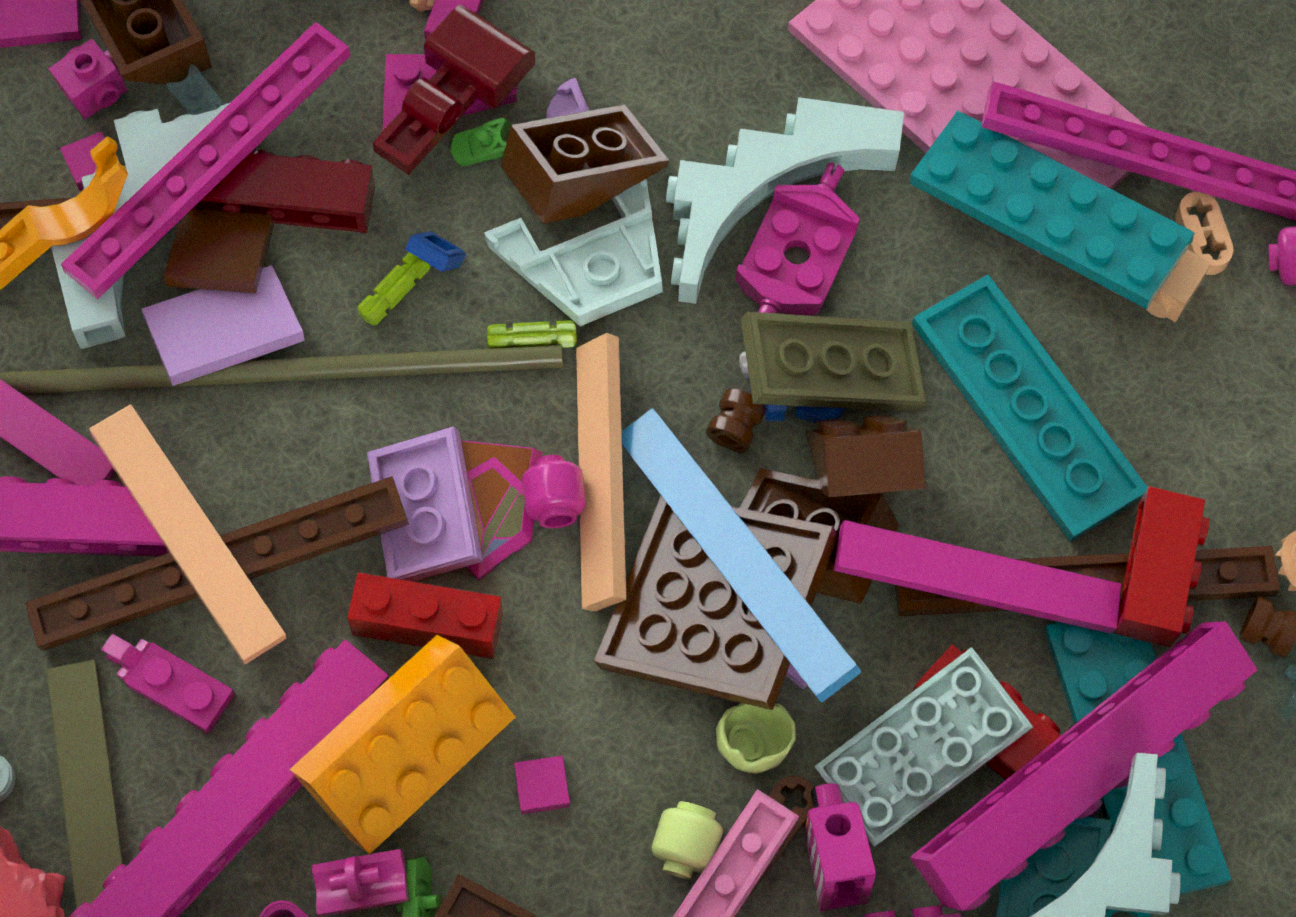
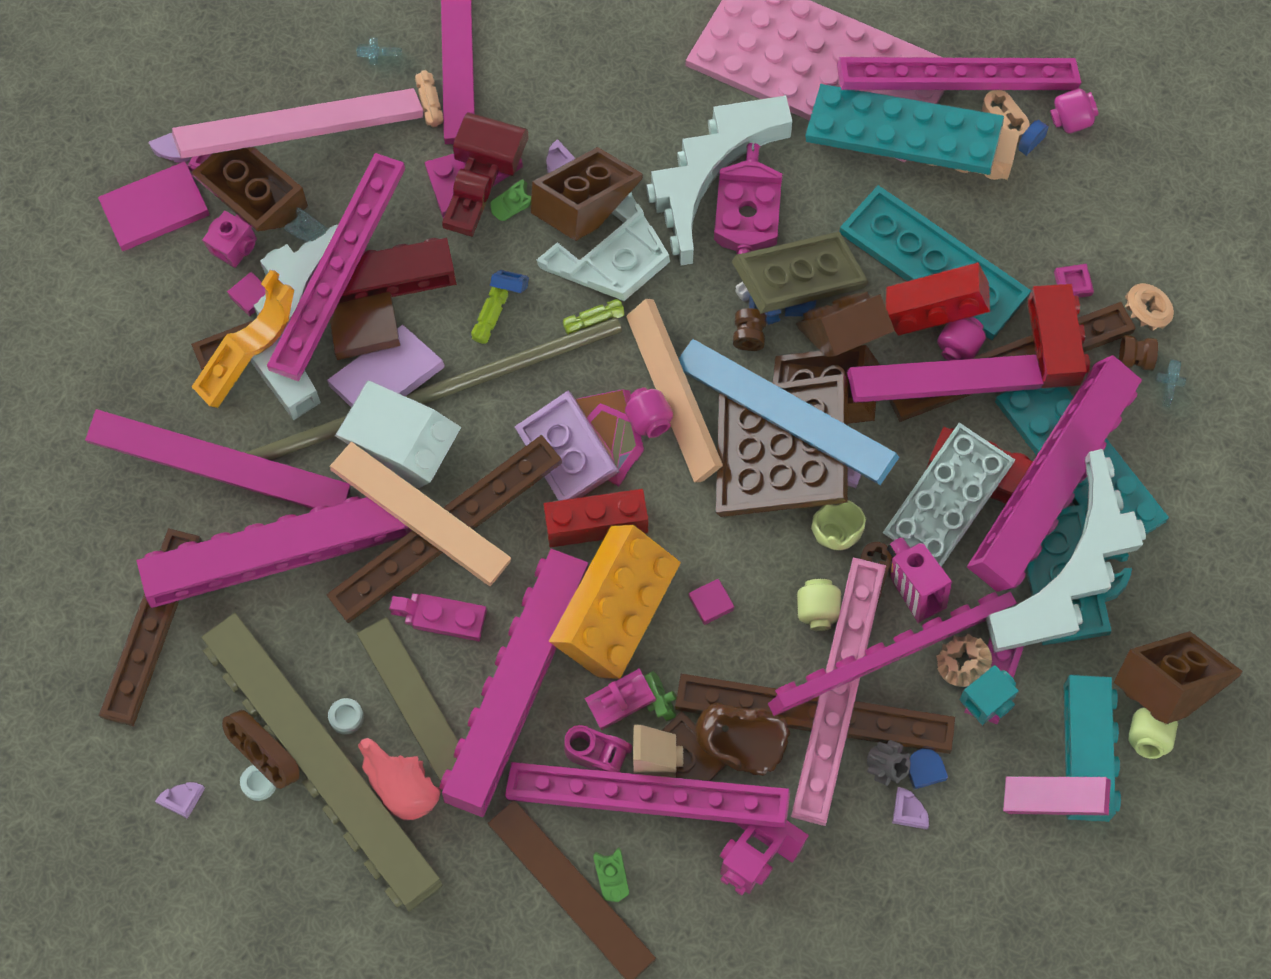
camera: 15 degrees left, 0 degrees up
(202, 411) = (399, 433): none -> light aqua slope
(1009, 461) = (938, 299): none -> red brick
(1025, 526) = (961, 339): none -> dark pink head
(1221, 494) = (1077, 276): none -> dark pink tile
(1231, 273) = (1032, 137): none -> blue tile

